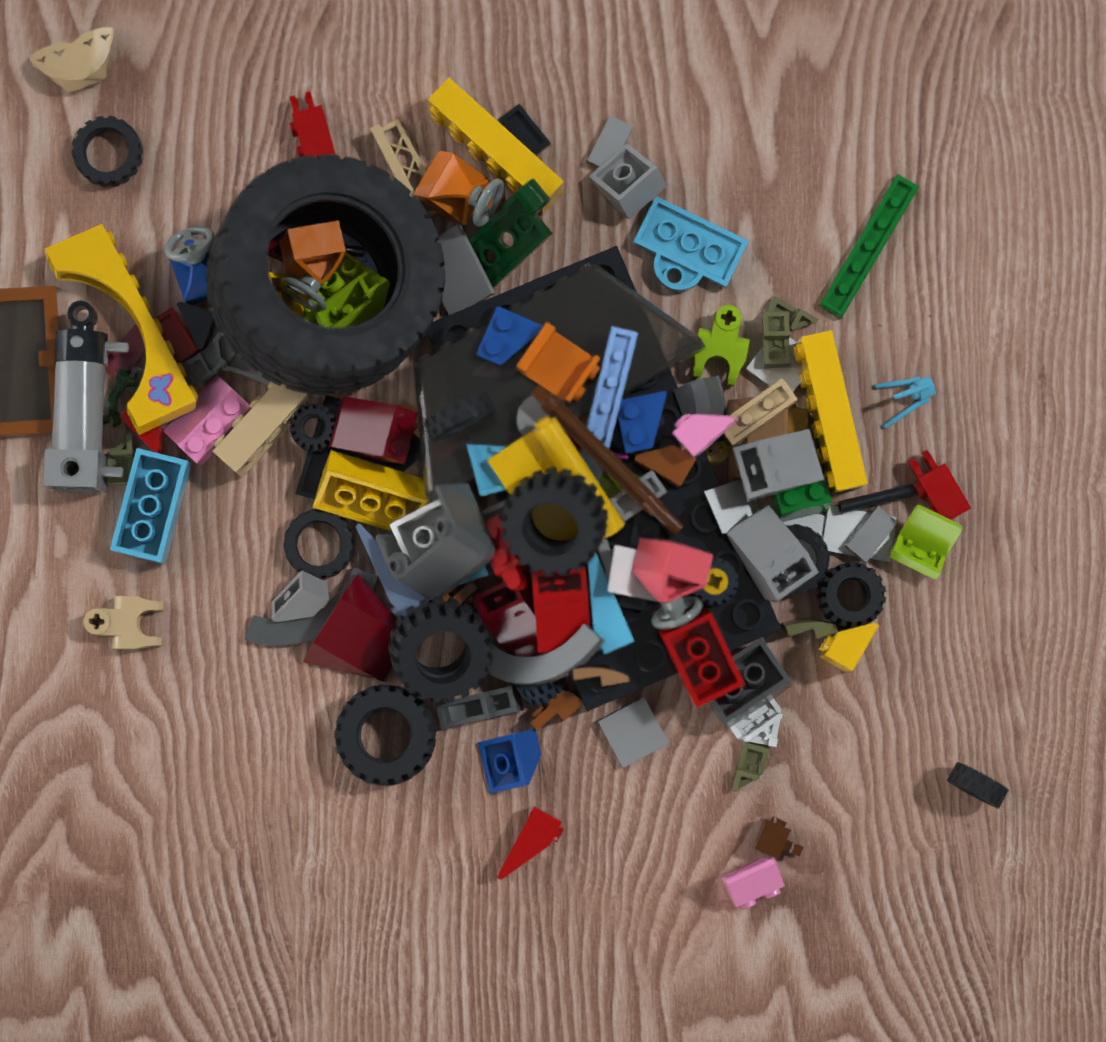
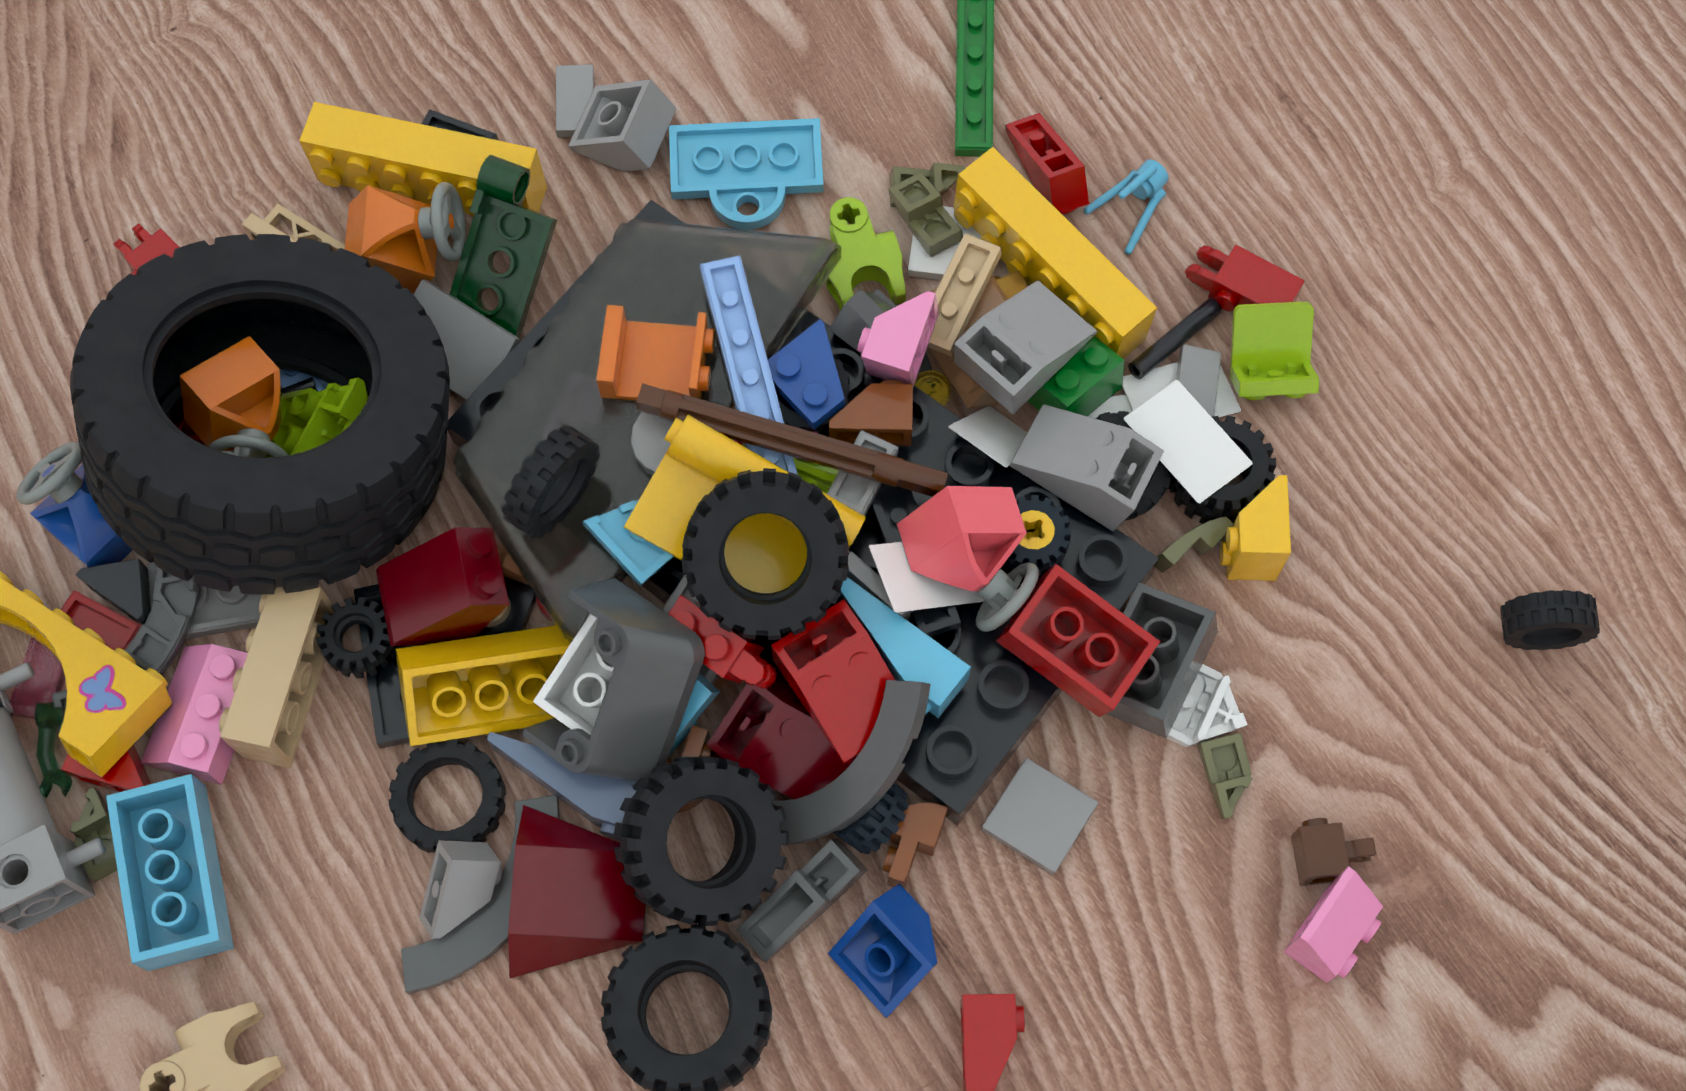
camera: 25 degrees left, 15 degrees down
(506, 336) = (562, 360): blue wing -> none
(608, 677) = (960, 740): medium nougat slope -> none
(839, 570) = (1192, 441): none -> white sticker
(869, 345) = (1049, 163): none -> red slope

